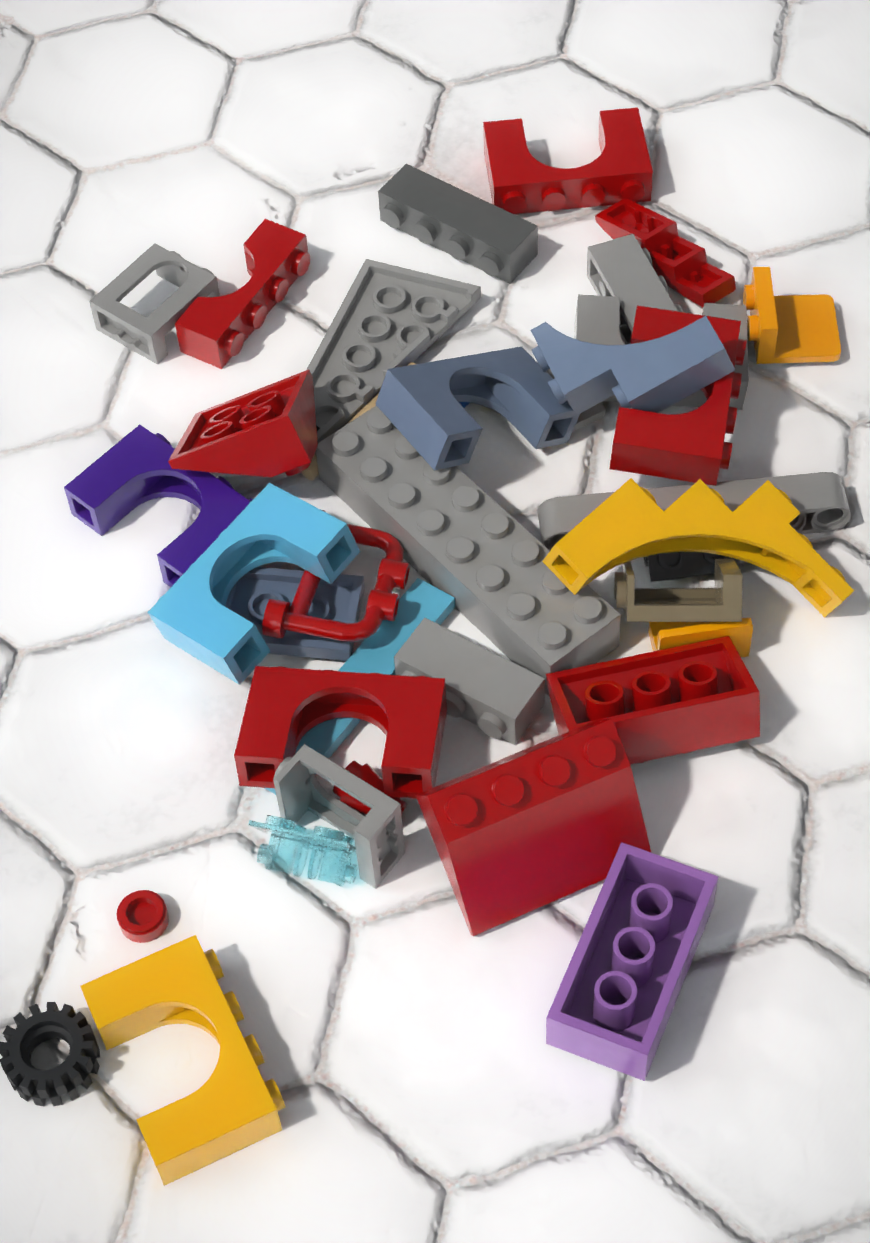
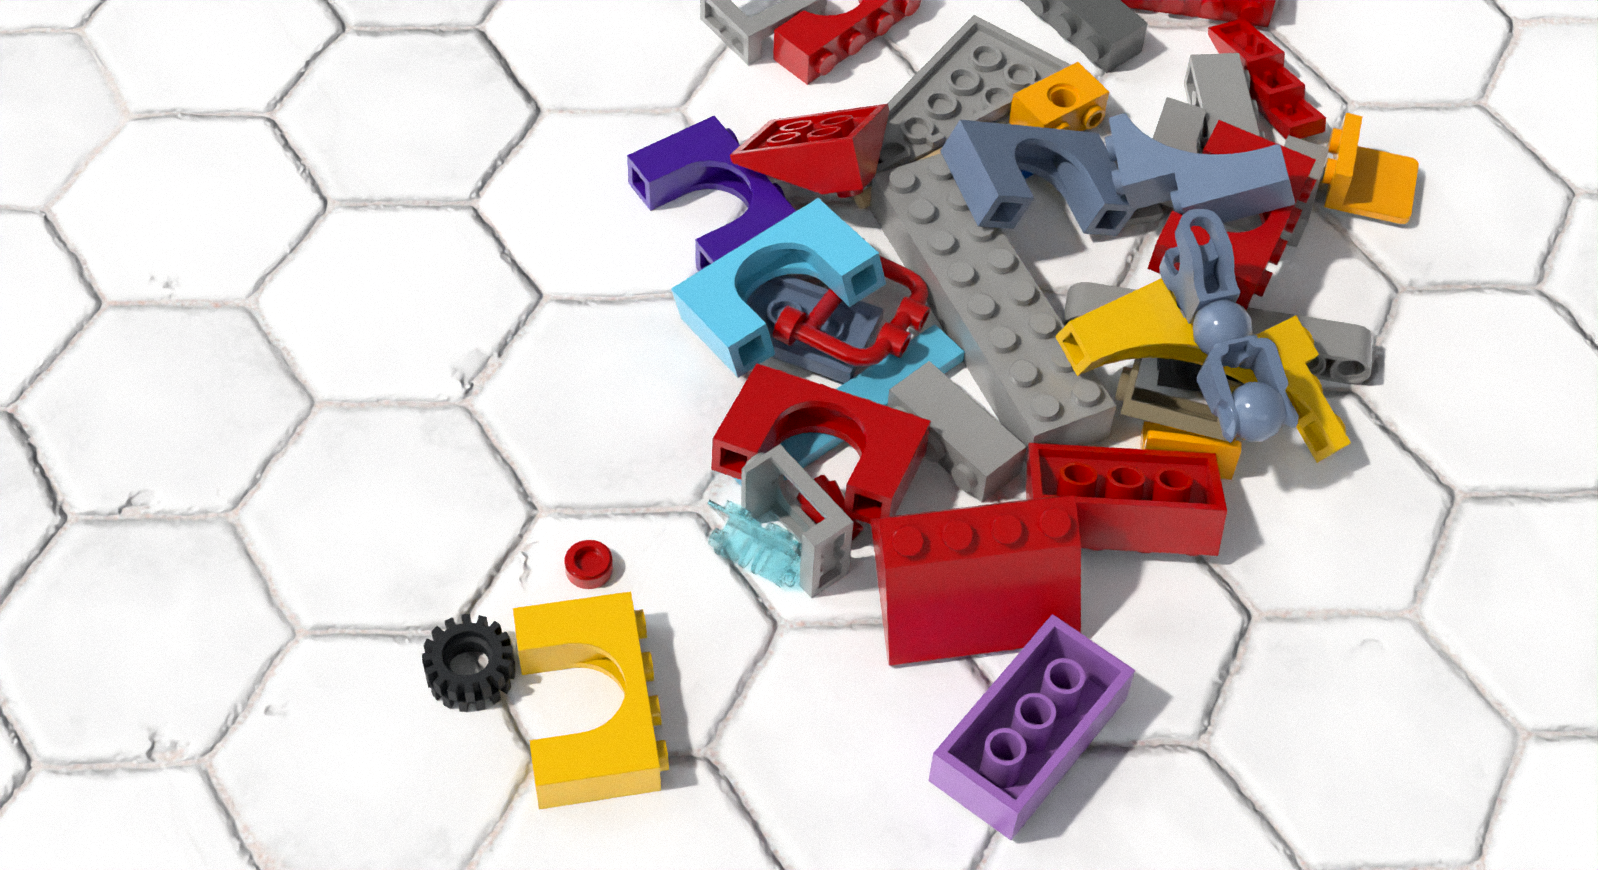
camera: 10 degrees right, 0 degrees up
(476, 324) = (1061, 101): none -> light orange brick
(705, 514) = (1223, 330): none -> sand blue piece

